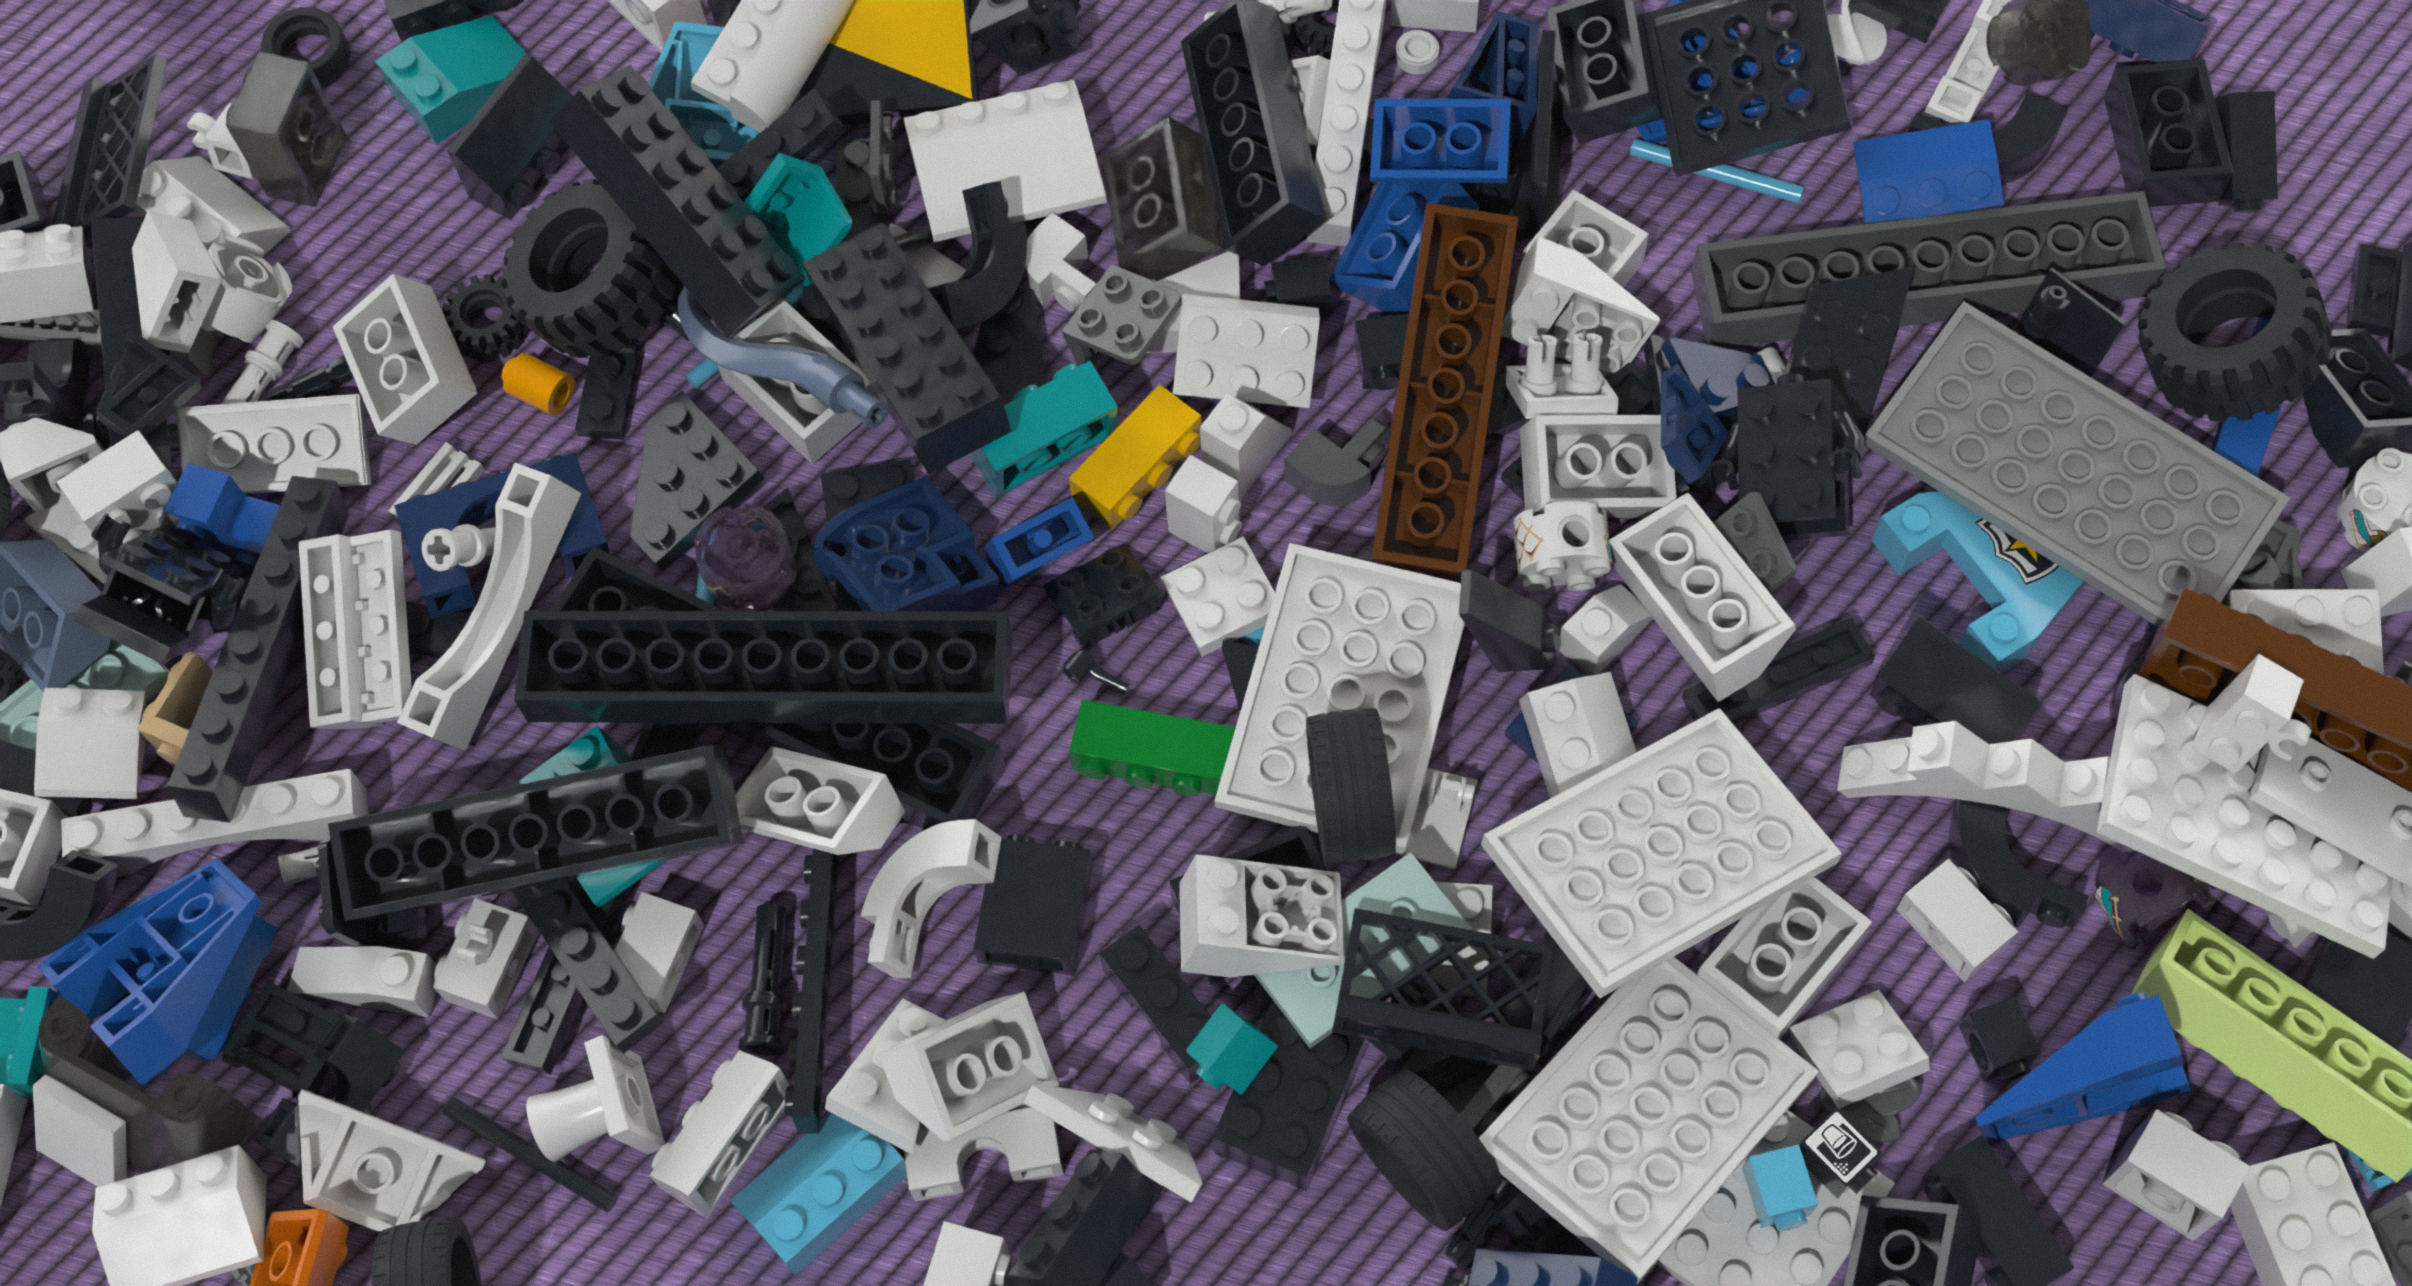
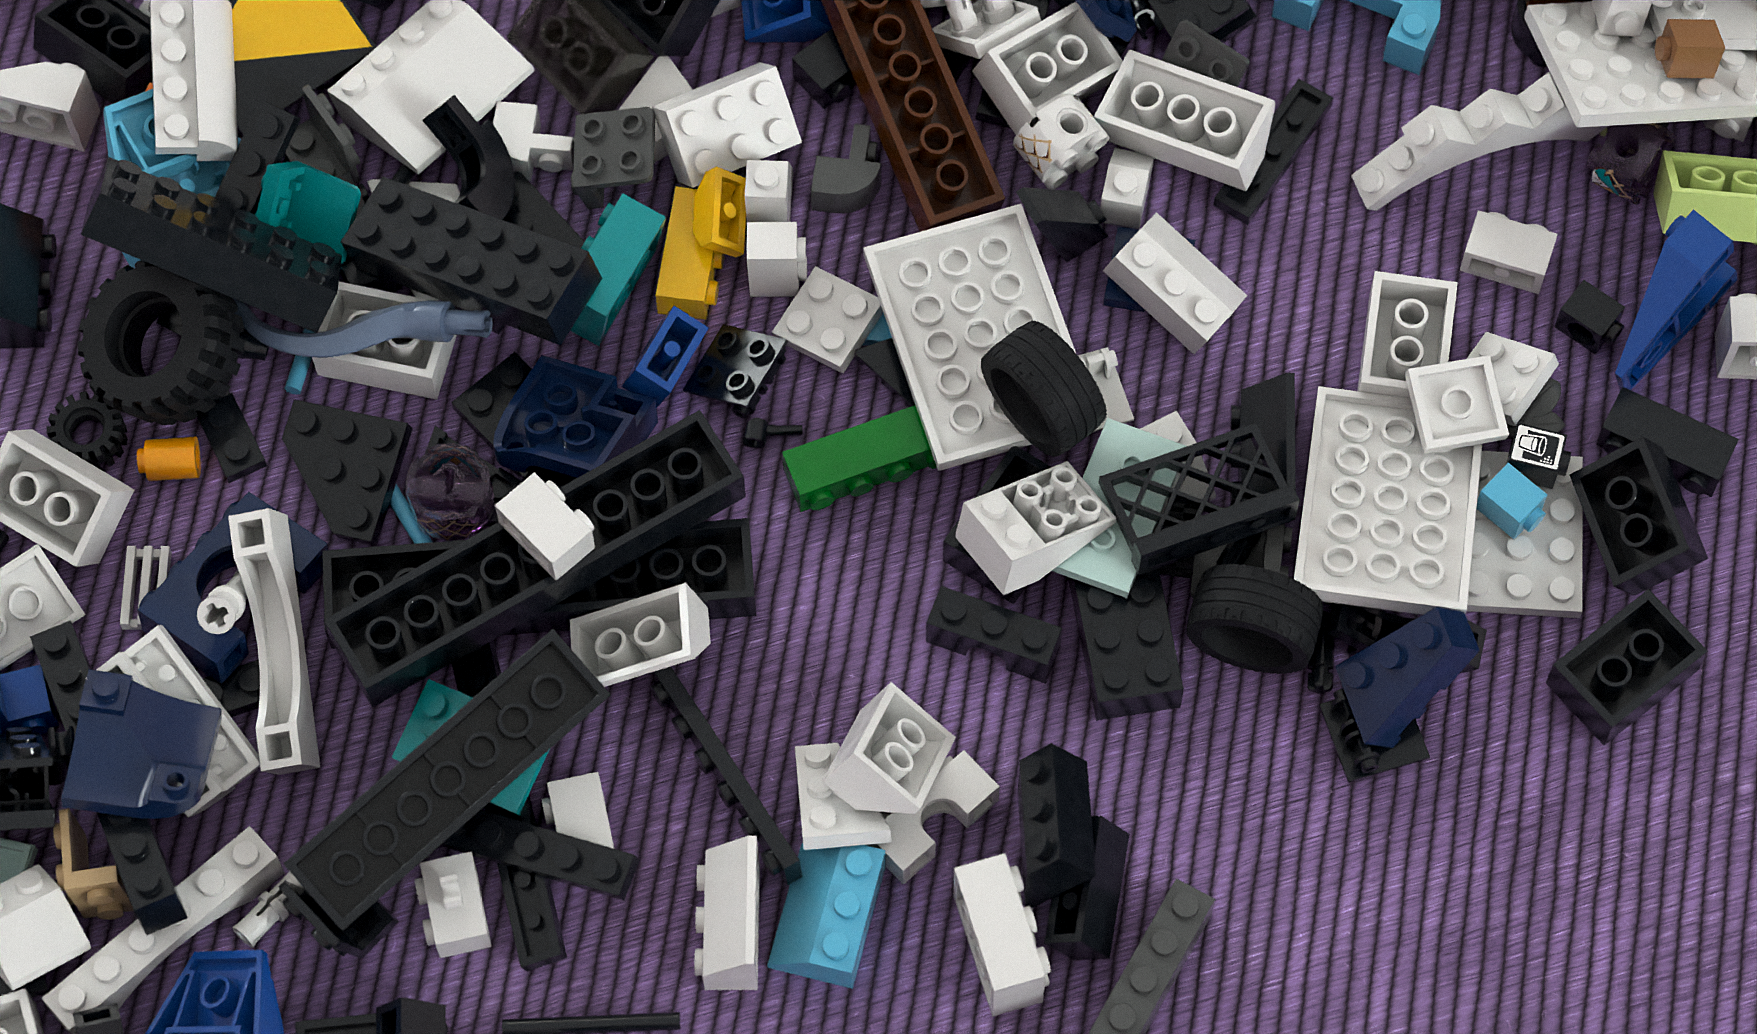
camera: 35 degrees left, 0 degrees up
(284, 636) = (136, 750): none -> dark blue slope
(366, 978) = (368, 975): white slope -> none
(610, 1103) = (624, 956): white plant -> none
(764, 1000) = (692, 810): black pin -> none
(778, 641) = (546, 525): none -> white brick
(915, 878) = (747, 651): white arch -> none
(1034, 906) = (846, 622): black brick -> none
(1115, 1128) = (1015, 737): white wing -> none
(1176, 432) = (720, 212): none -> yellow slope
(1230, 1050) = (1072, 631): teal brick -> none
(1300, 284) = (727, 53): black brick -> none
(1659, 851) = (1283, 314): white plate -> none
(1783, 1050) = (1456, 404): none -> white plate
(1941, 681) = (1395, 87): black slope -> none
(1981, 848) = (1490, 188): black arch -> none
(2278, 817) = (1690, 48): none -> medium nougat brick

